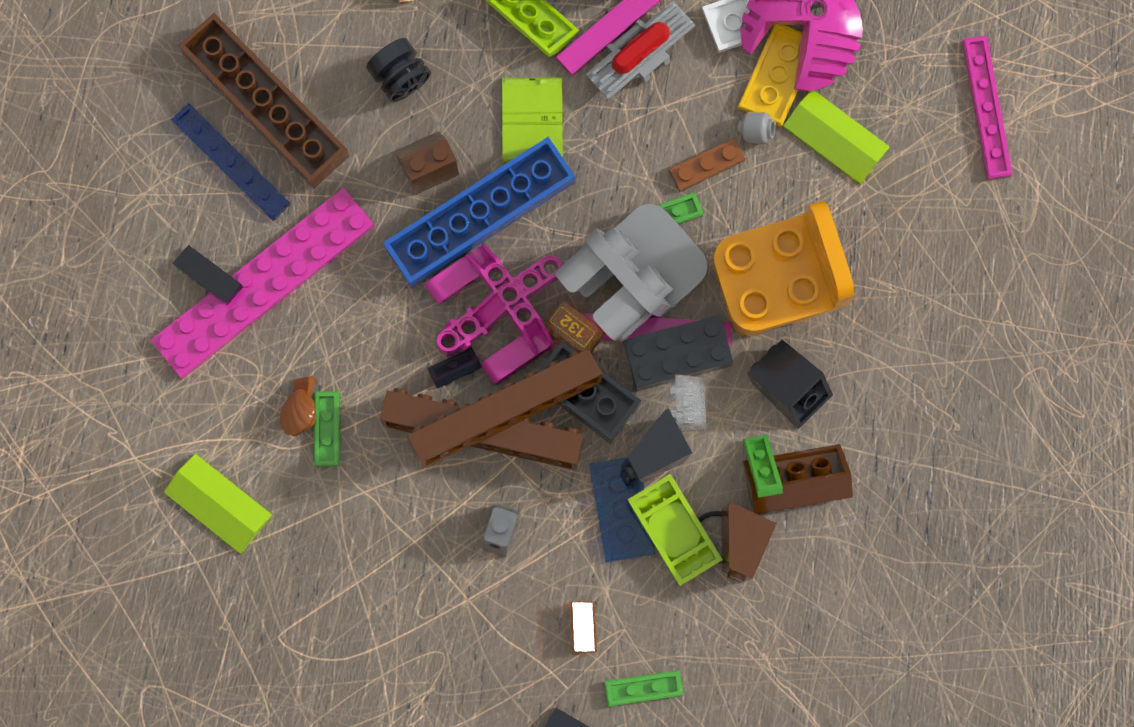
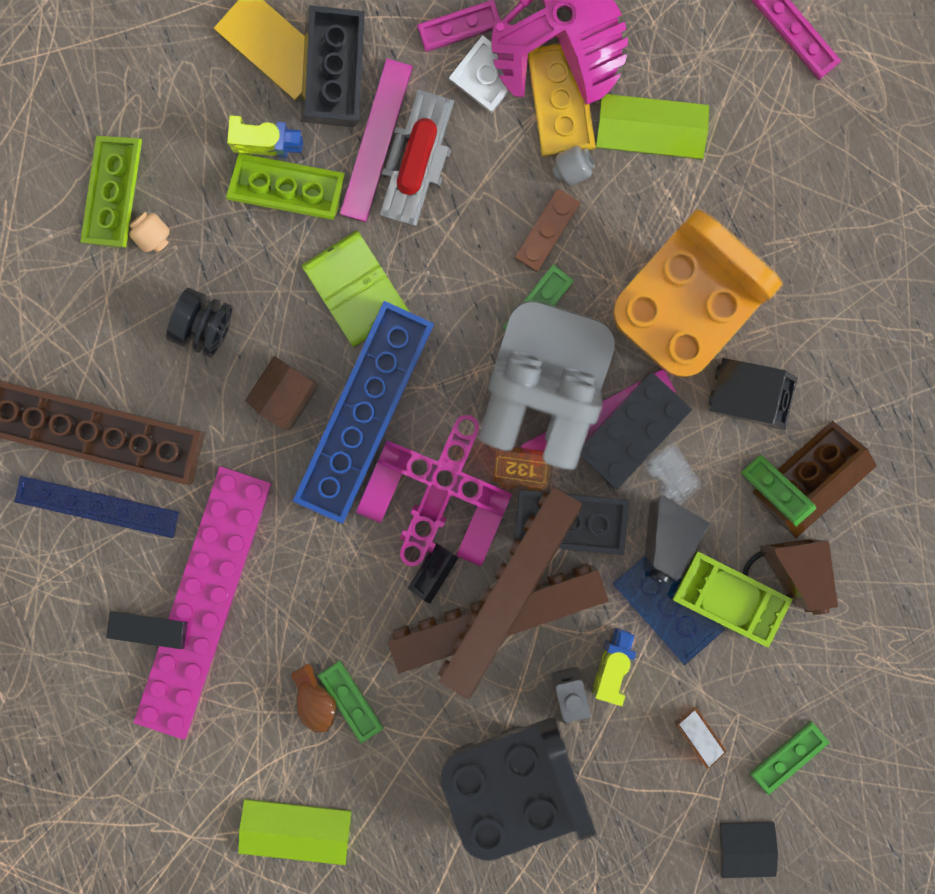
camera: 30 degrees left, 10 degrees up
(409, 564) = (514, 792): none -> black piece
(549, 524) = (613, 667): none -> neon yellow hips

